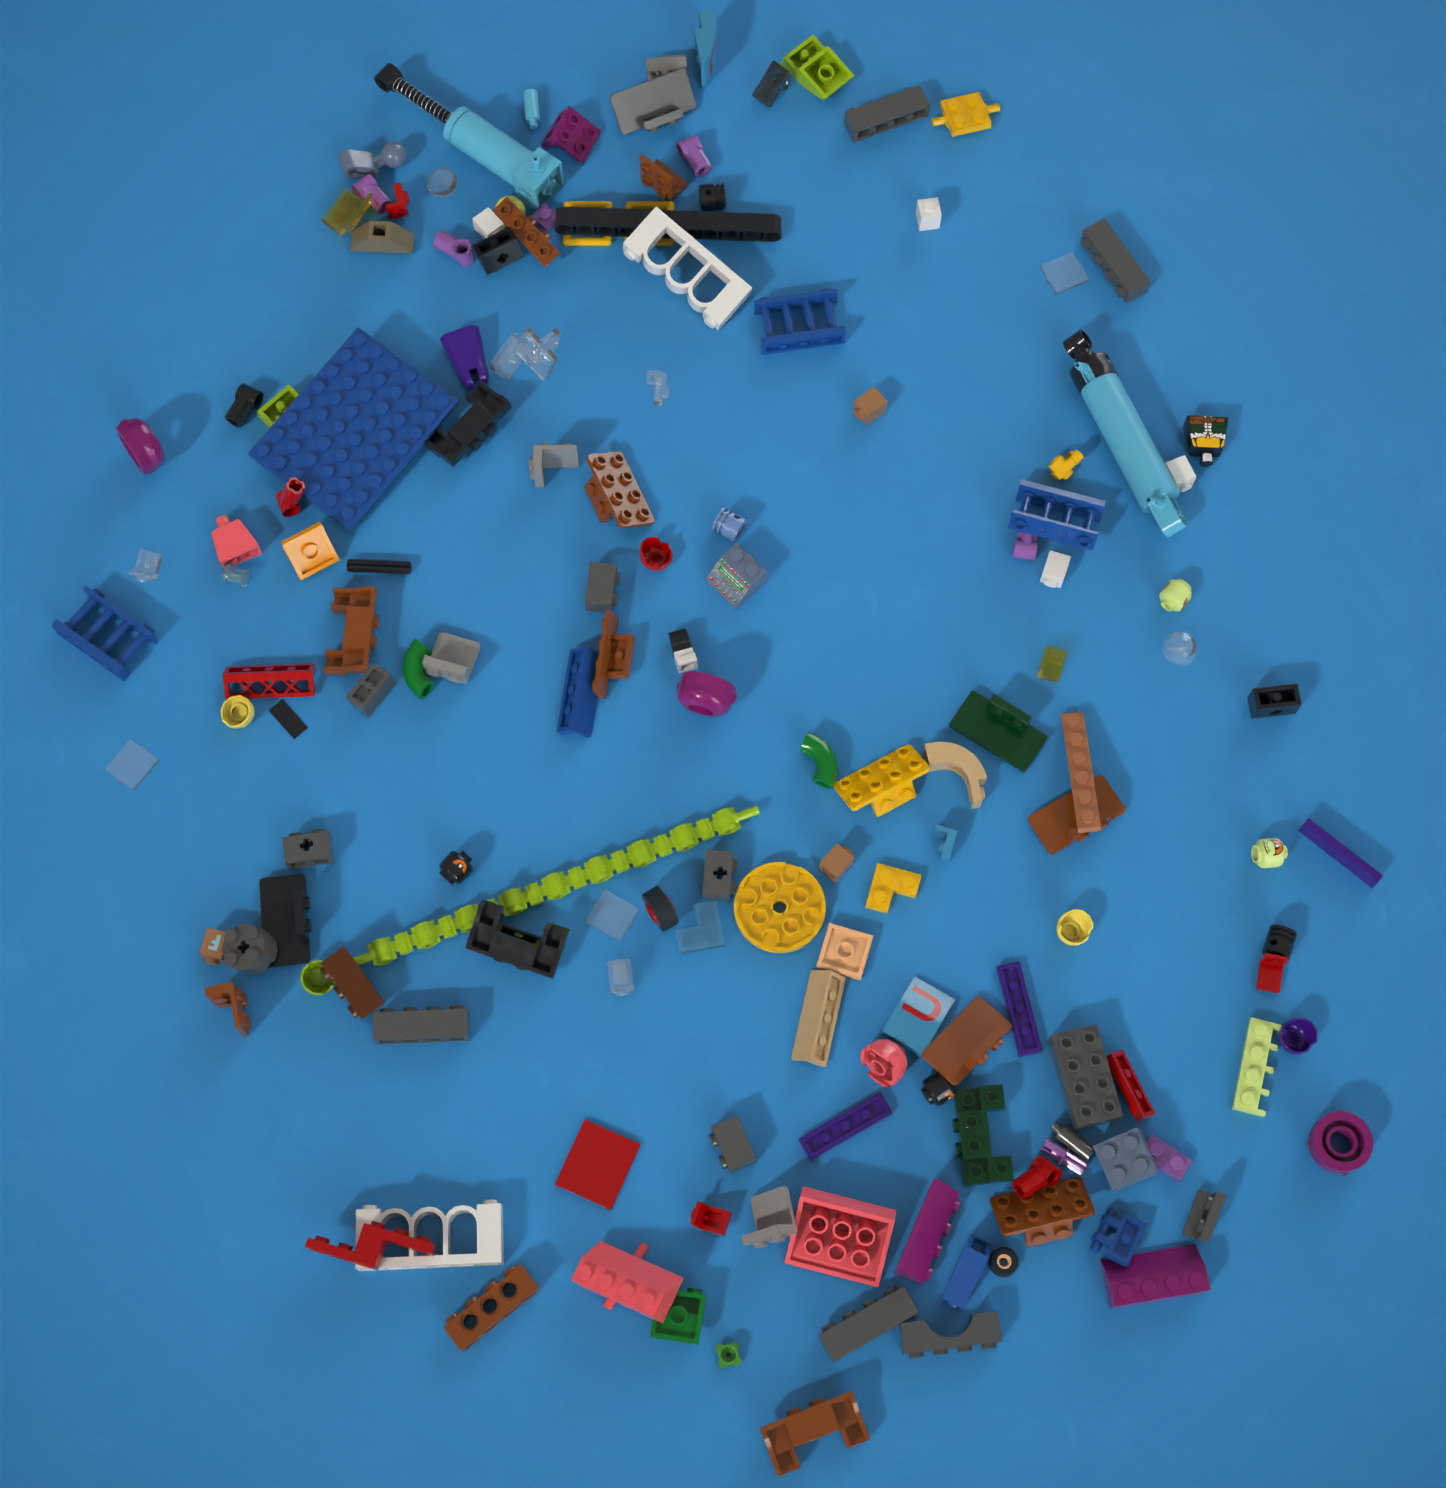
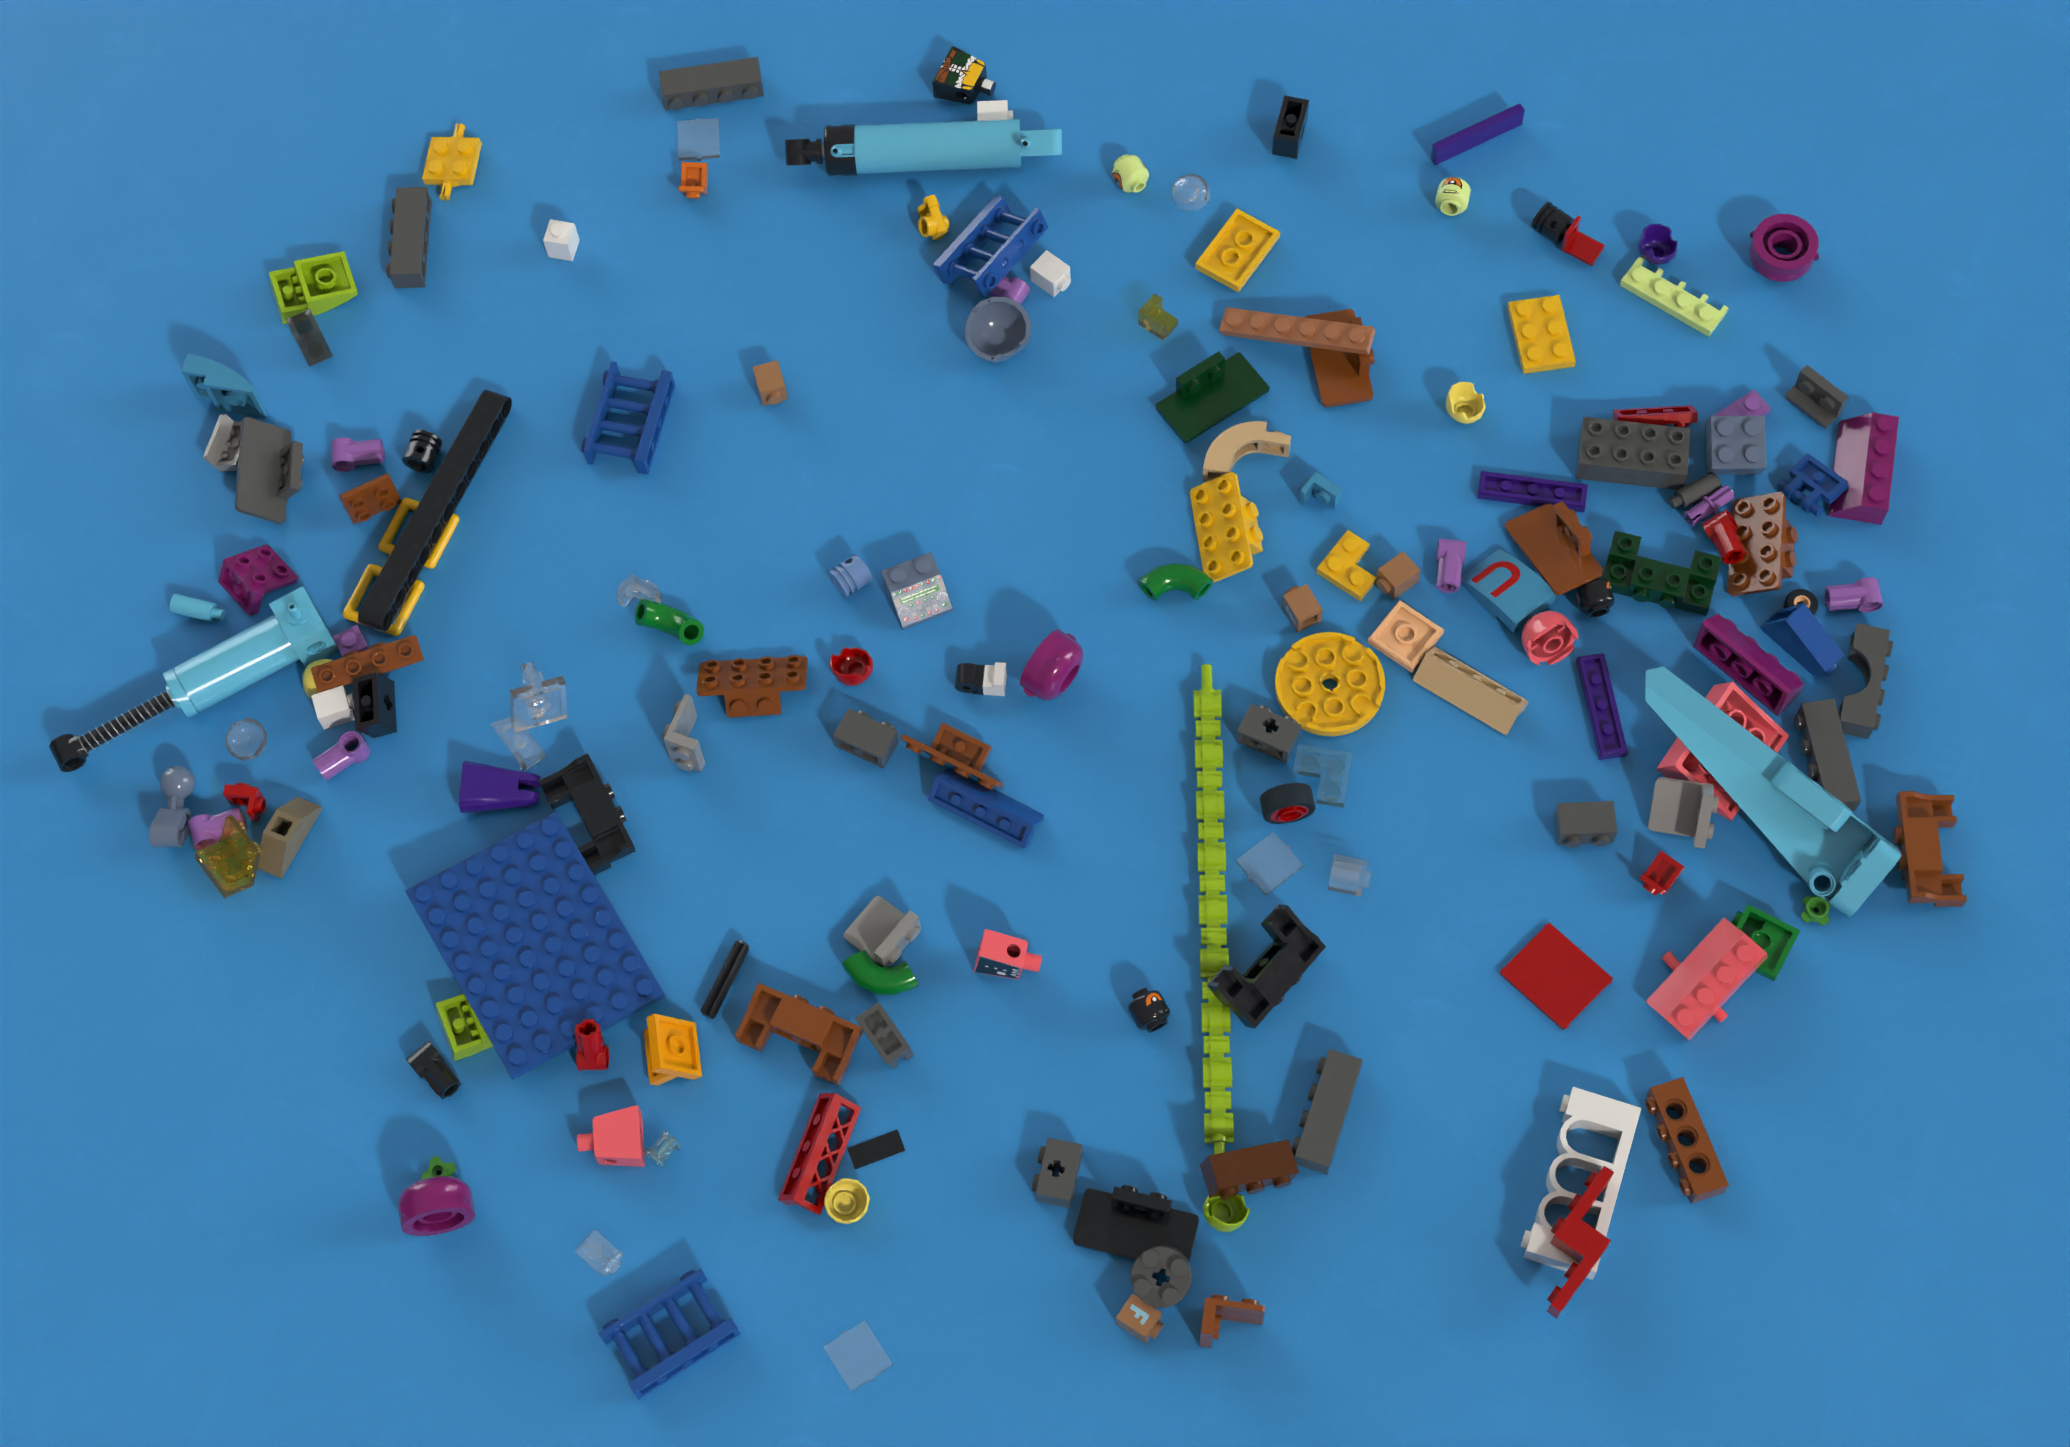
camera: 65 degrees left, 5 degrees down
(174, 445) = (437, 1164): none -> bright green plate
(459, 740) = (1004, 956): none -> coral torso
(644, 416) = (669, 620): none -> green cylinder
(651, 231) = (458, 543): white fence -> none
(802, 1303) = (1789, 808): none -> medium azure panel
(894, 926) = (1397, 575): none -> medium nougat brick
(928, 962) = (1450, 561): none -> medium lavender piece
(982, 547) = (997, 329): none -> sand blue cylinder
(1023, 283) = (694, 179): none -> orange bracket
(1031, 1310) = (1863, 594): none -> medium lavender piece
(1141, 702) = (1237, 250): none -> yellow plate
(1171, 969) = (1541, 334): none -> yellow plate

